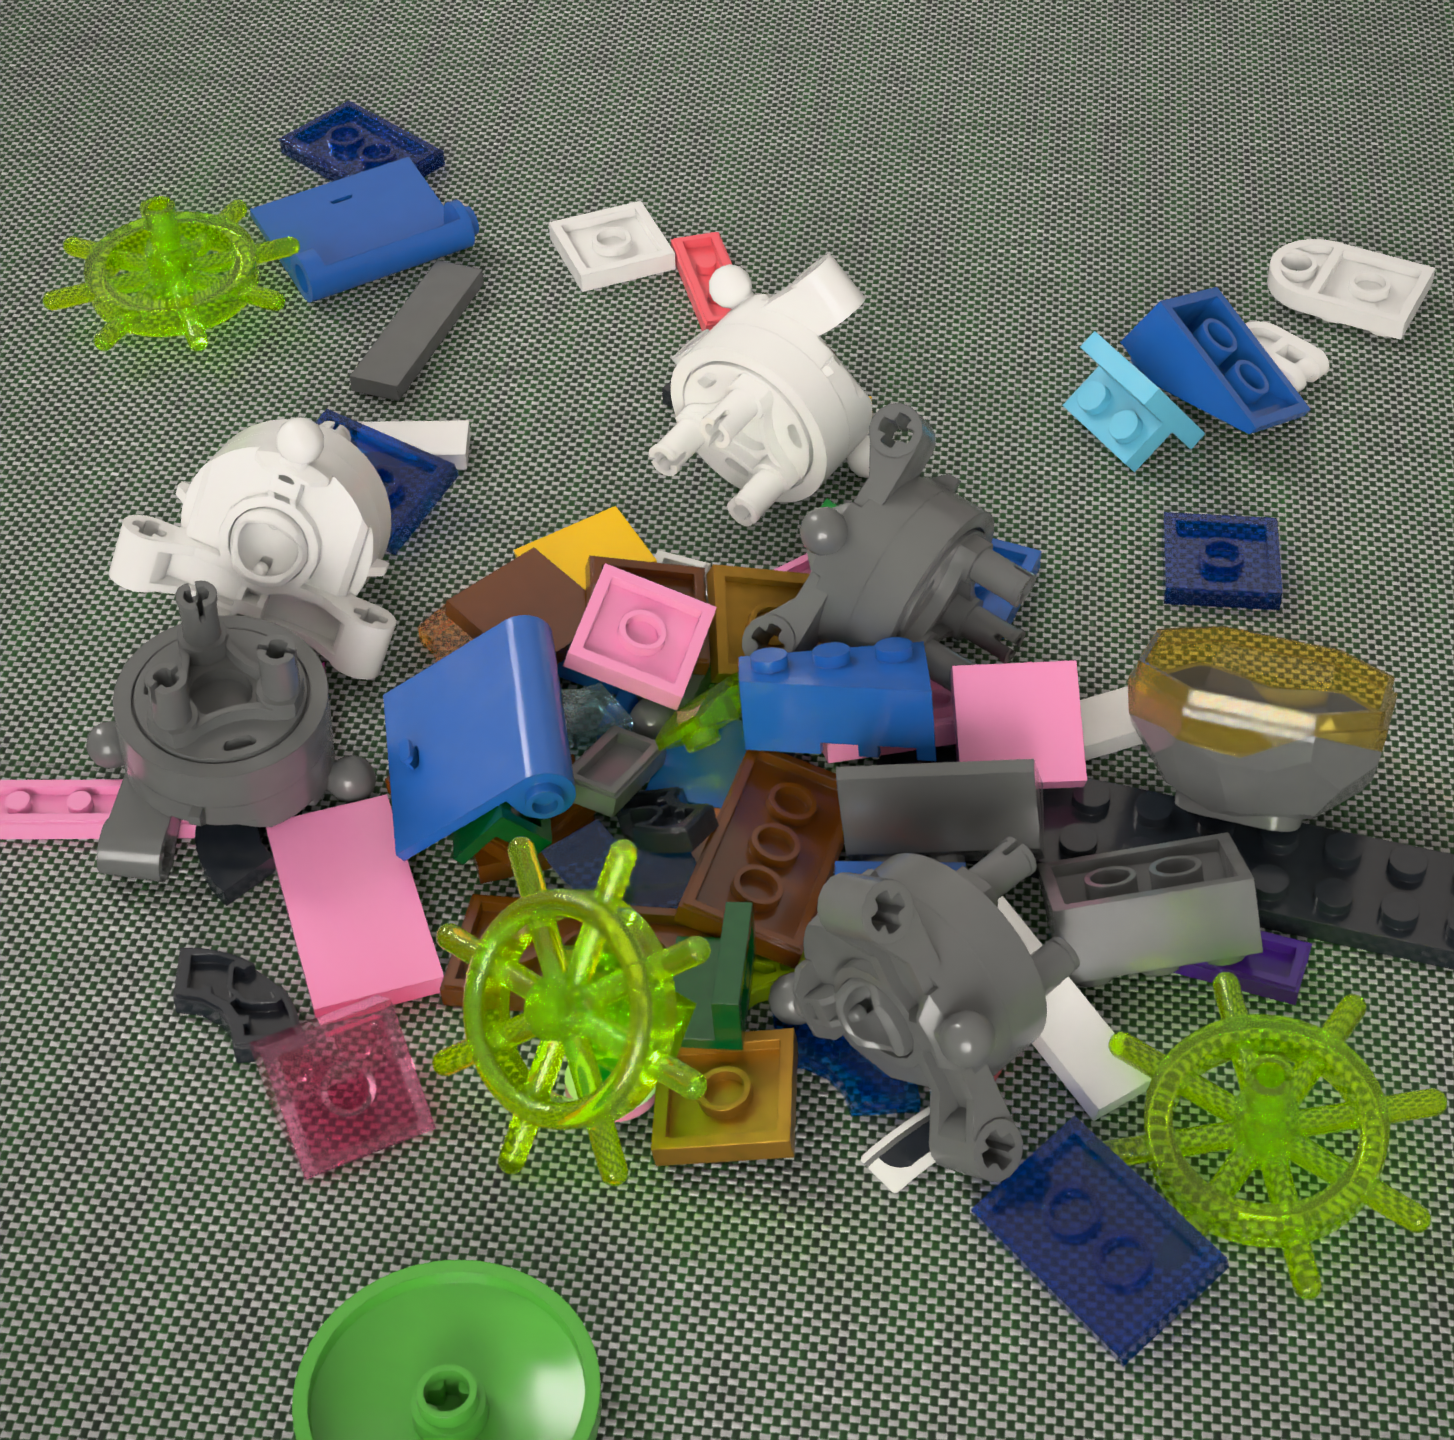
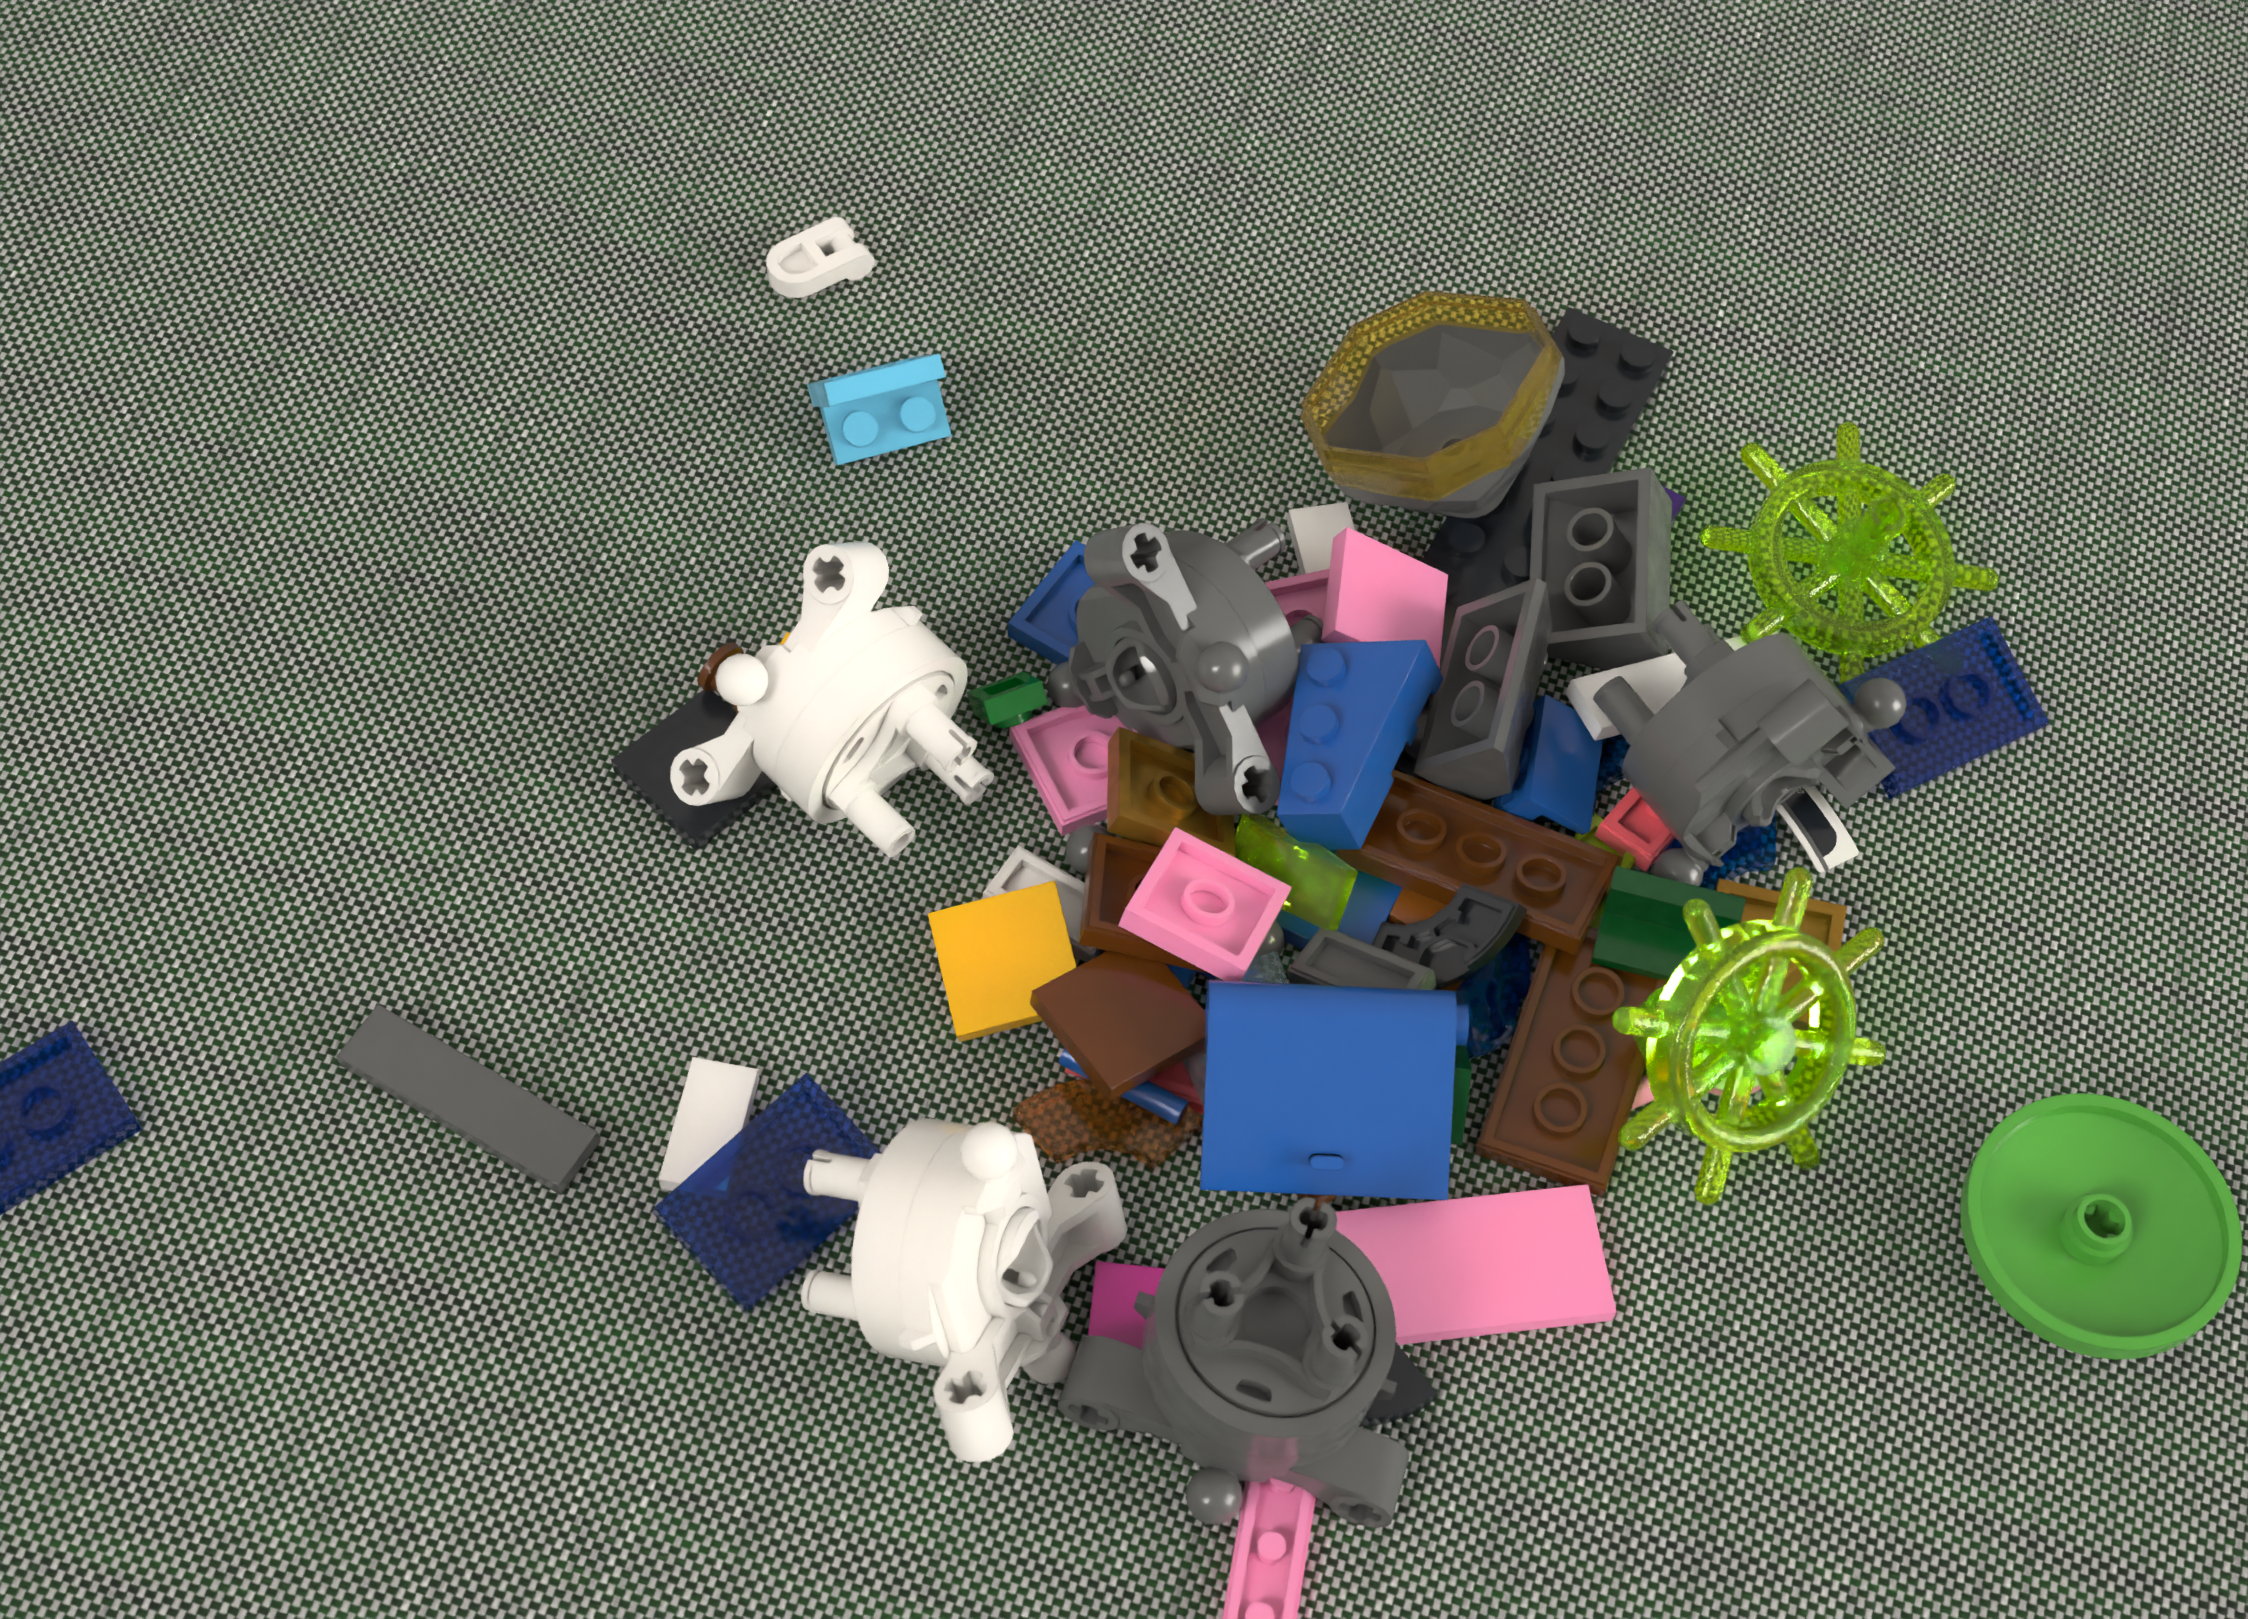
camera: 85 degrees left, 15 degrees up
(168, 267) = (260, 1393): clear neon green piece -> none
(233, 996) = (1581, 1388): black tile -> none
(343, 1085) = (1716, 1291): clear pink slope -> none
(365, 228) = (242, 1137): blue door -> none
(612, 246) = (364, 853): white tile -> none
(696, 262) = (487, 757): coral tile -> none
(1213, 361) = (840, 312): blue slope -> none
(1221, 561) = (1115, 399): clear blue tile -> none
(1349, 285) = (720, 161): white plate -> none

